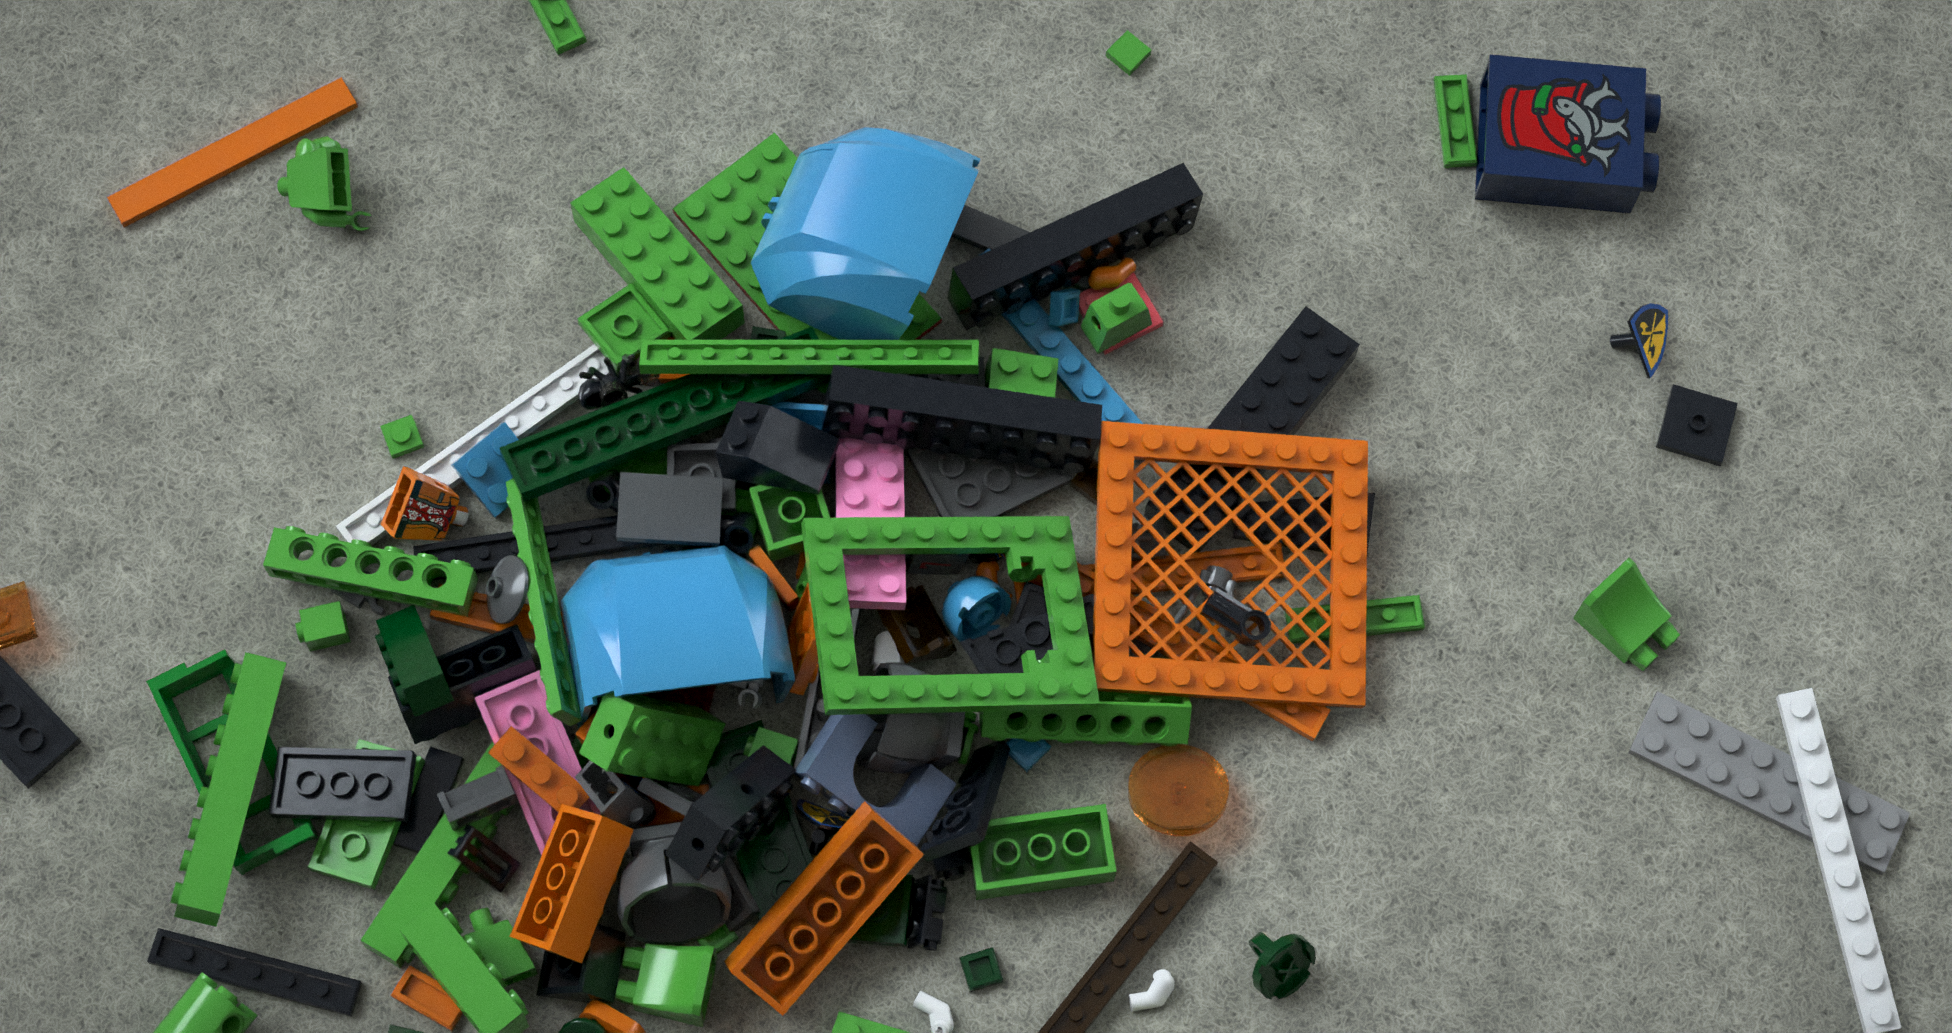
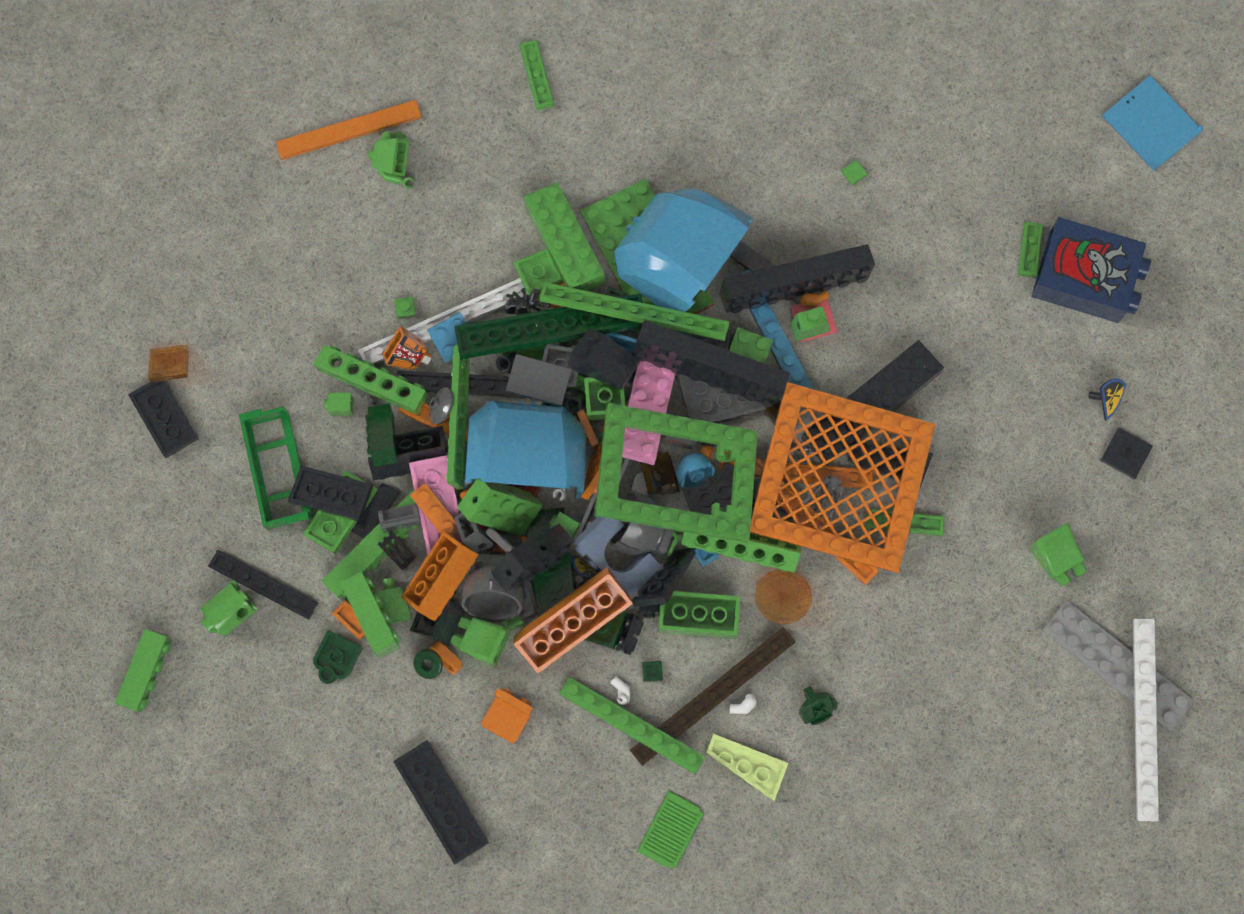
camera: 20 degrees right, 5 degrees up
(230, 789) = (269, 483): bright green brick -> none
(1064, 307) = (783, 311): dark azure tile -> none
(1233, 614) = (835, 506): black piece -> none

